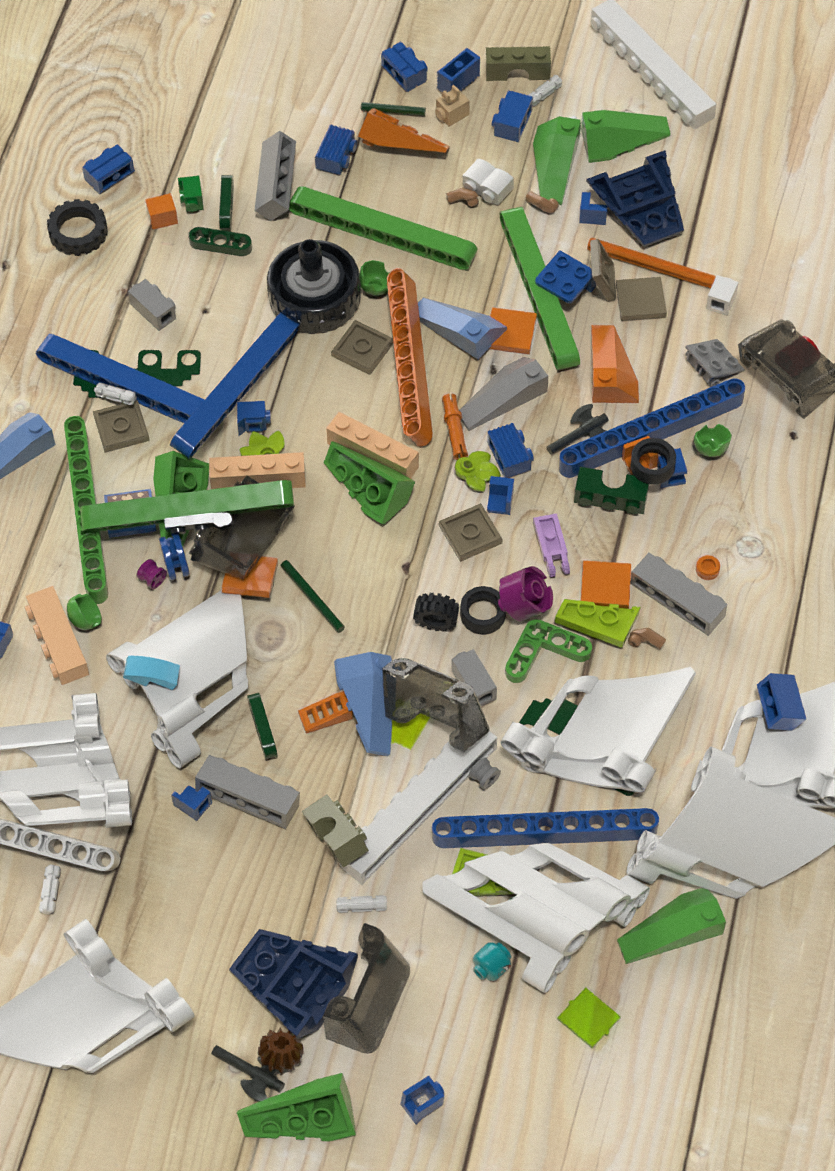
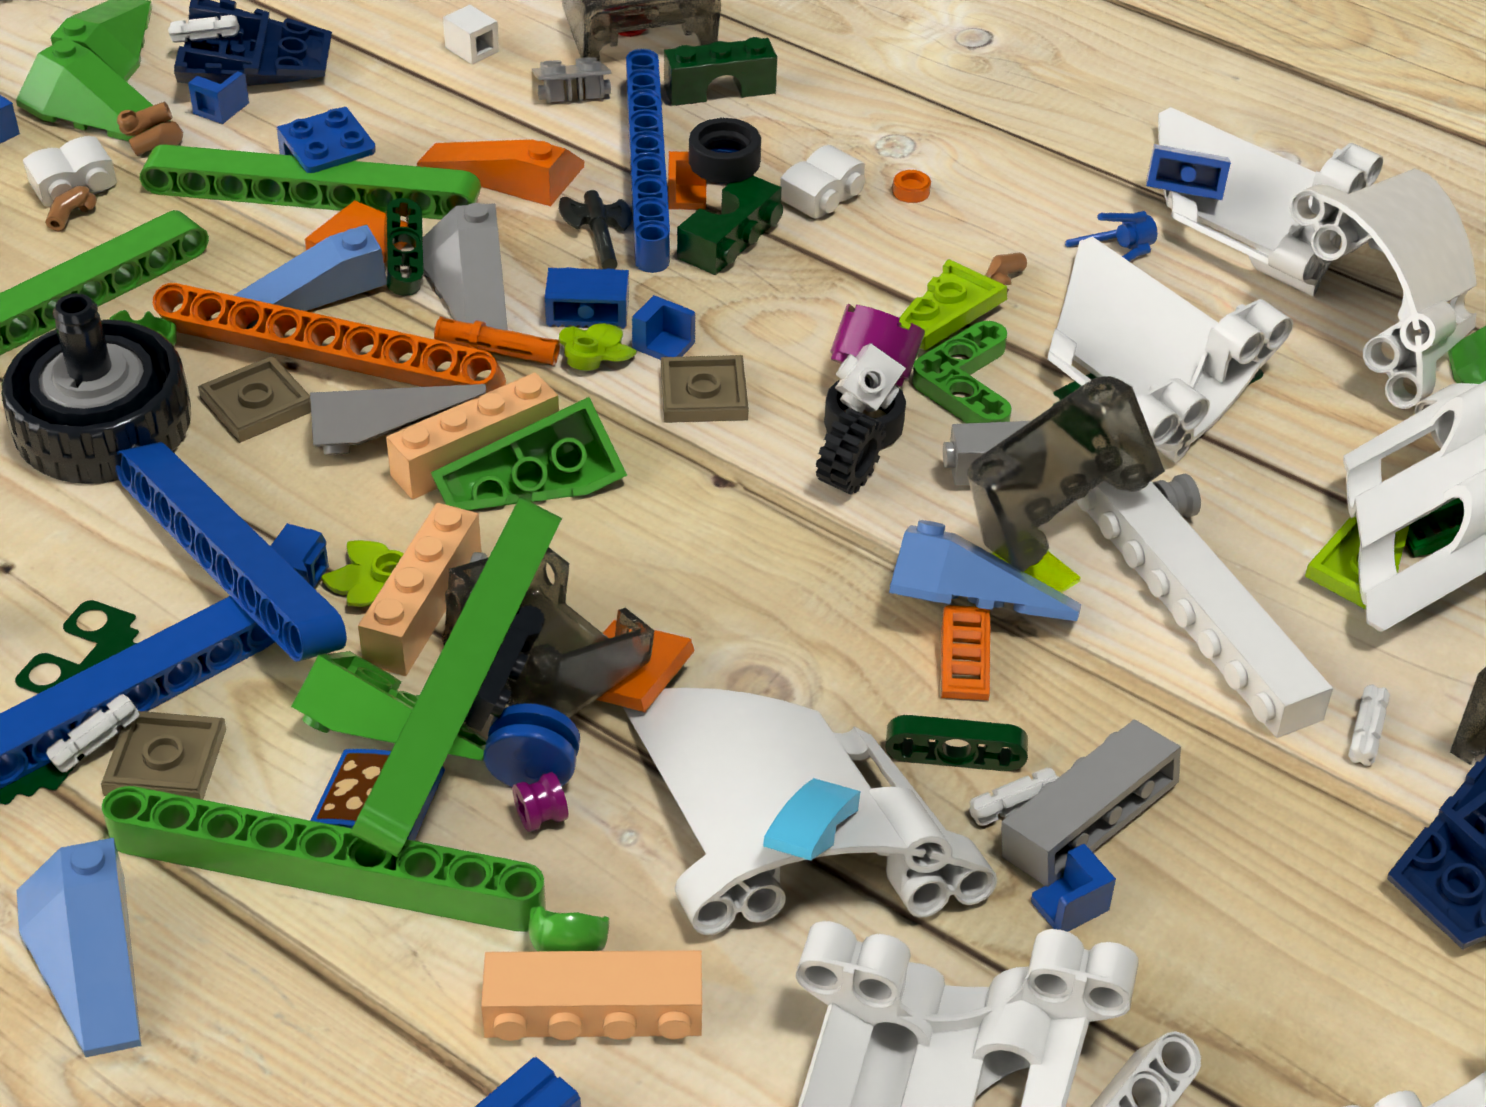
camera: 70 degrees left, 15 degrees down
(241, 759) = (1009, 796): none -> white axle
(312, 596) = (721, 603): dark green bar -> none
(336, 829) = (1199, 695): arch -> none
(365, 396) = (364, 415): none -> light grey wedge
(483, 598) = (880, 370): none -> white brick
(488, 354) = (396, 258): none -> dark green beam
(534, 835) = (1299, 471): blue beam -> none
(545, 188) = (134, 123): none -> medium nougat arm
(551, 542) = (786, 309): lavender hinge -> none
(603, 270) = (331, 92): dark tan tile -> none
(606, 583) = (884, 281): orange tile -> none
(640, 172) = (203, 28): none -> white axle
(641, 298) = (410, 106): dark tan tile -> none
(657, 264) = (355, 79): orange axle -> none
(677, 521) = (822, 181): none -> white brick
(679, 593) = (947, 217): light grey brick -> none
(712, 441) = (708, 104): bright green hair -> none
(719, 693) = (1135, 233): none -> blue plant
(768, 440) = (693, 68): none -> dark green arch

